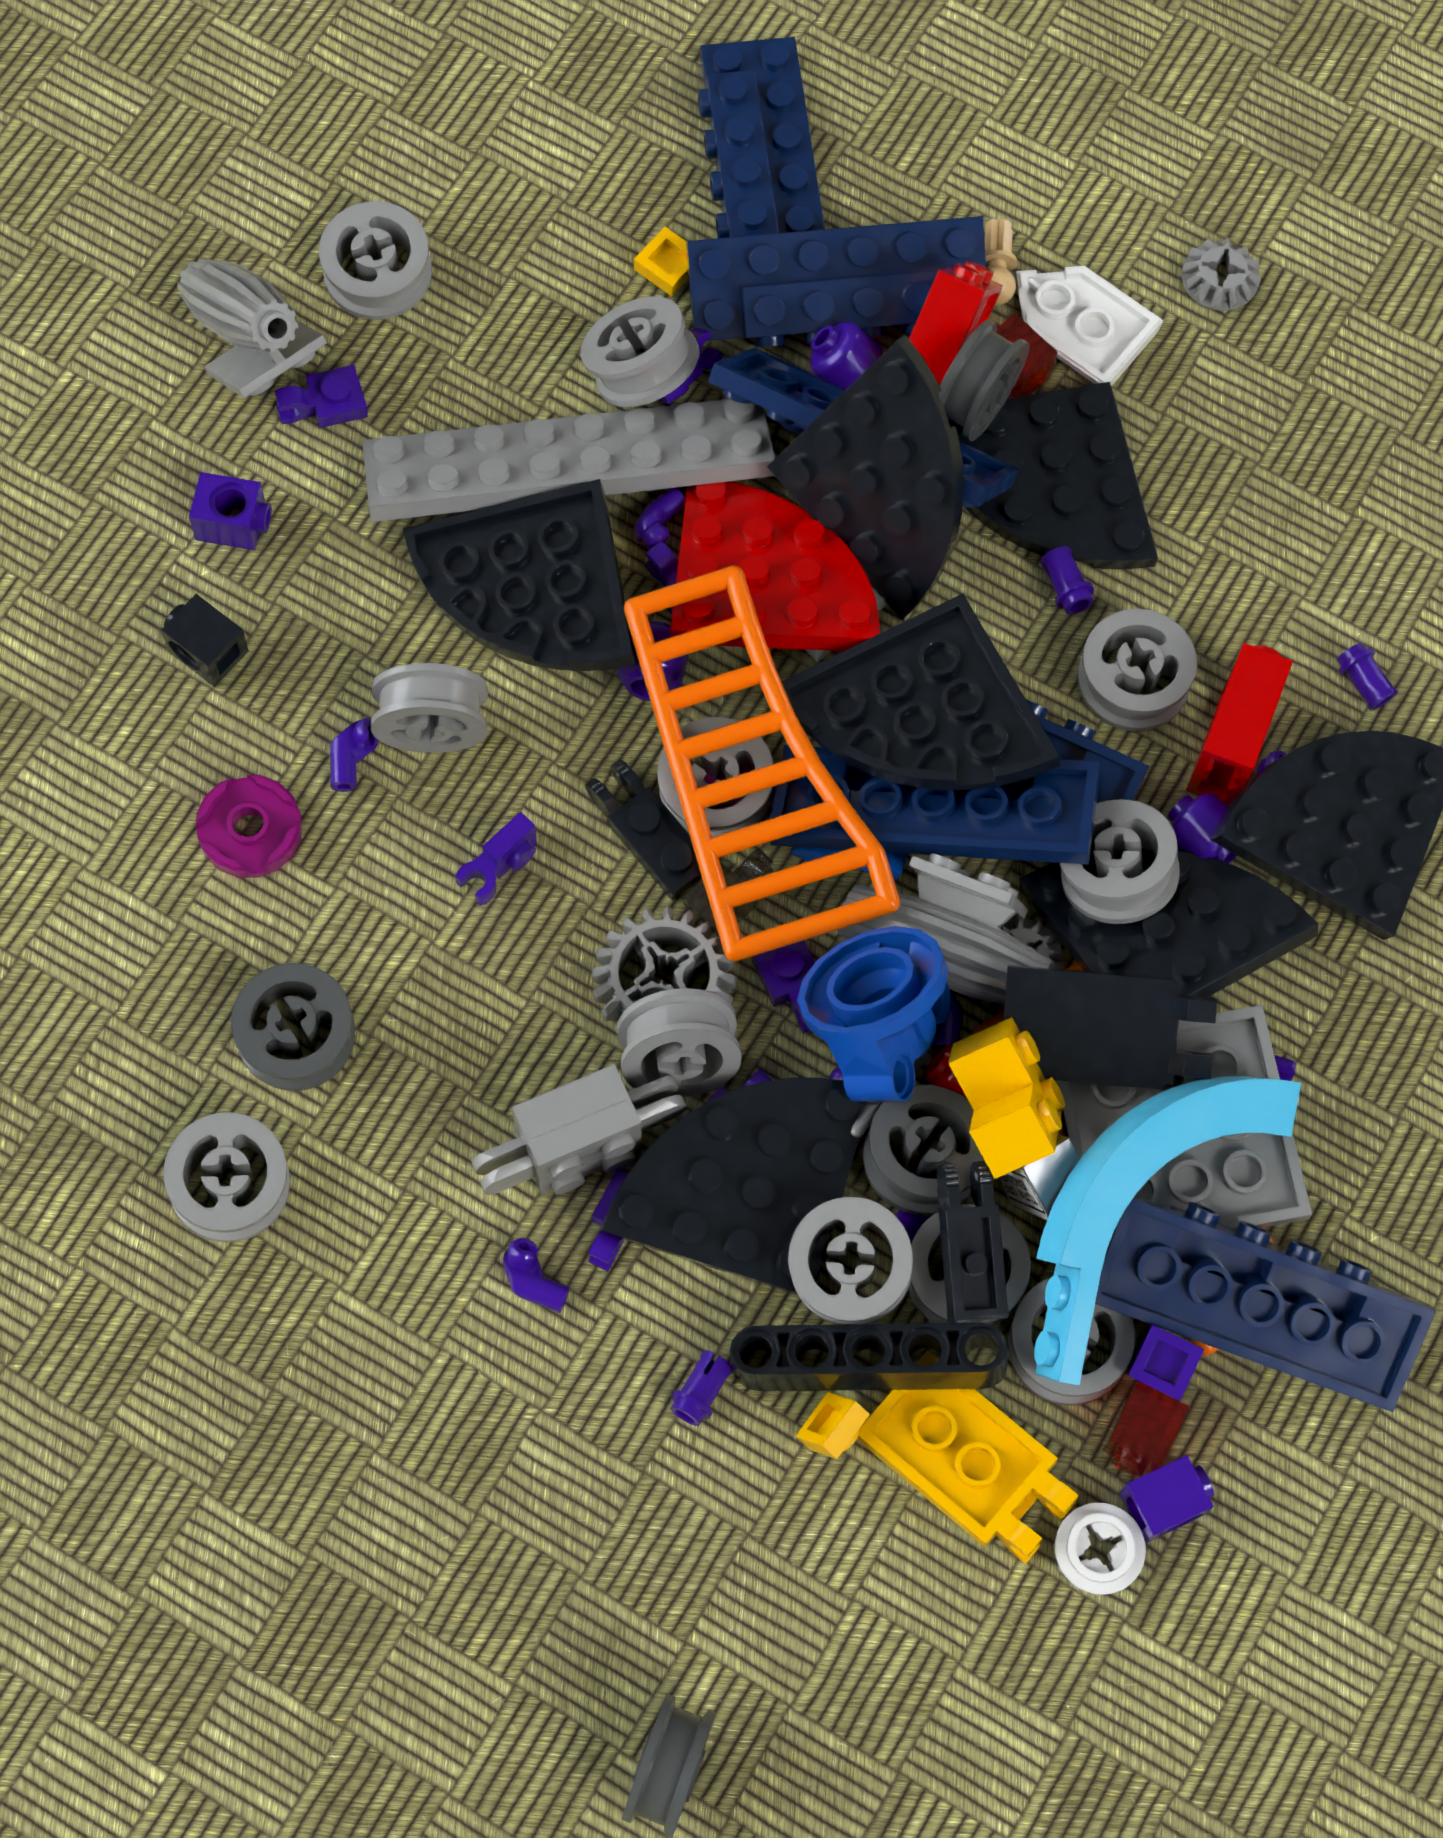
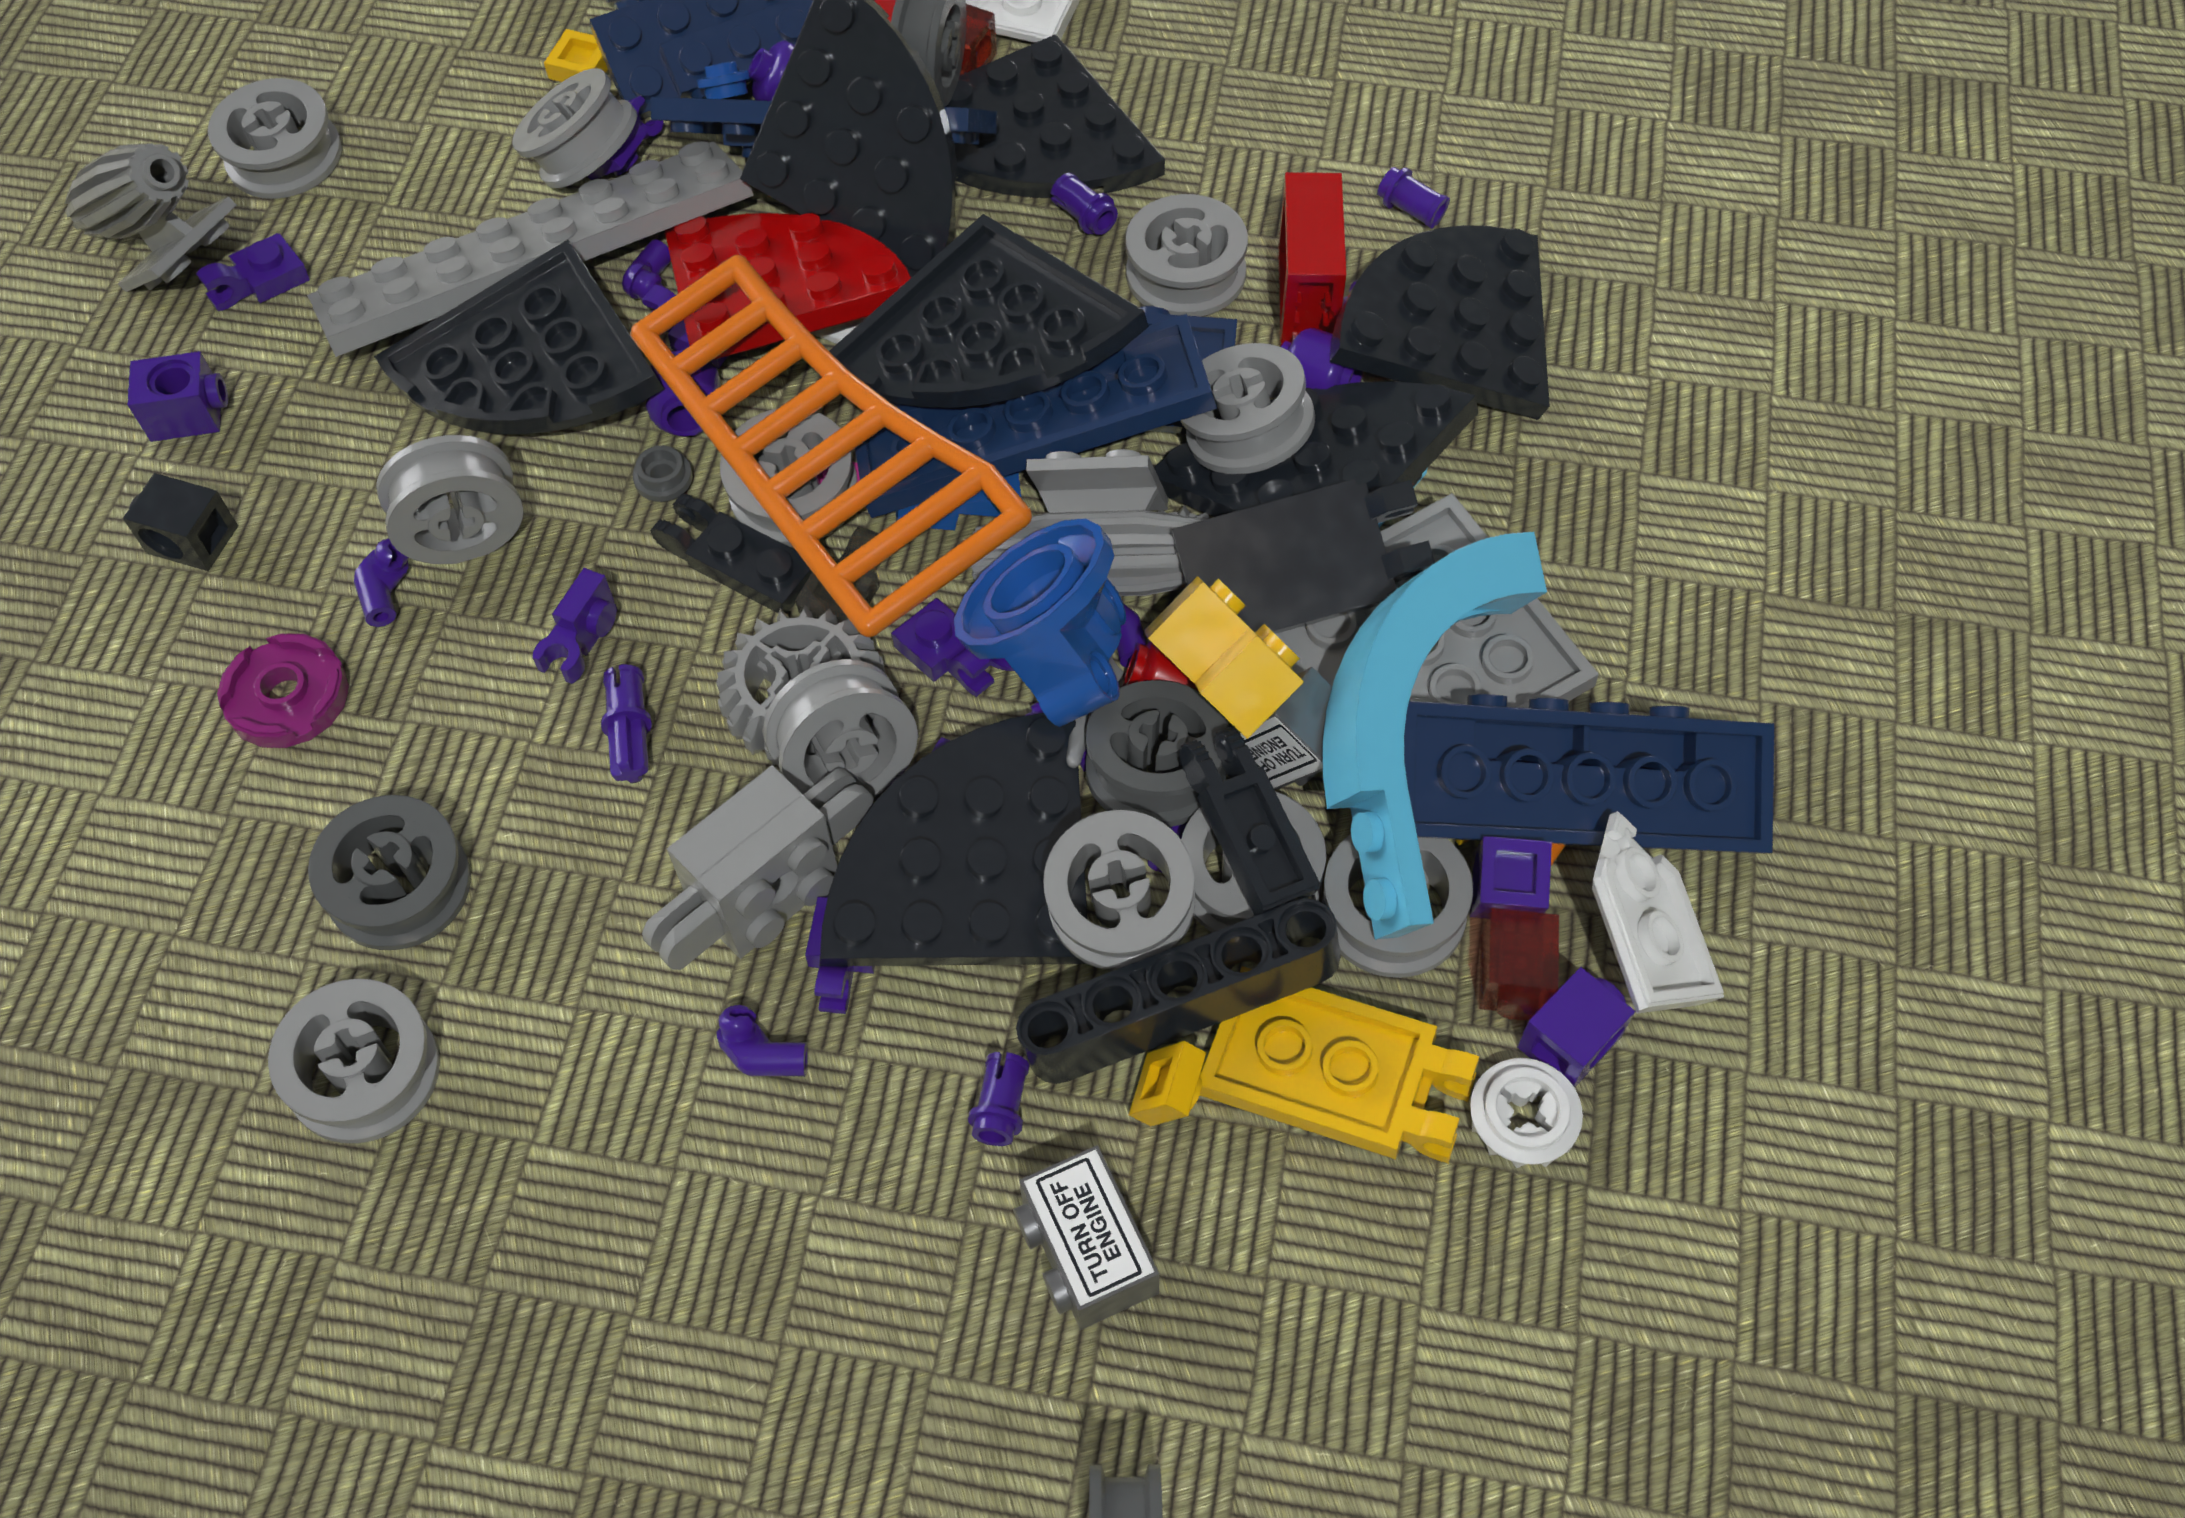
camera: 15 degrees left, 10 degrees down
(513, 960) = (626, 723): none -> dark purple axle
(611, 718) = (657, 463): none -> dark grey plate
(728, 1522) = (1087, 1237): none -> brick
(787, 345) = (723, 81): none -> blue plate
(1261, 1439) = (1651, 925): none -> white tile

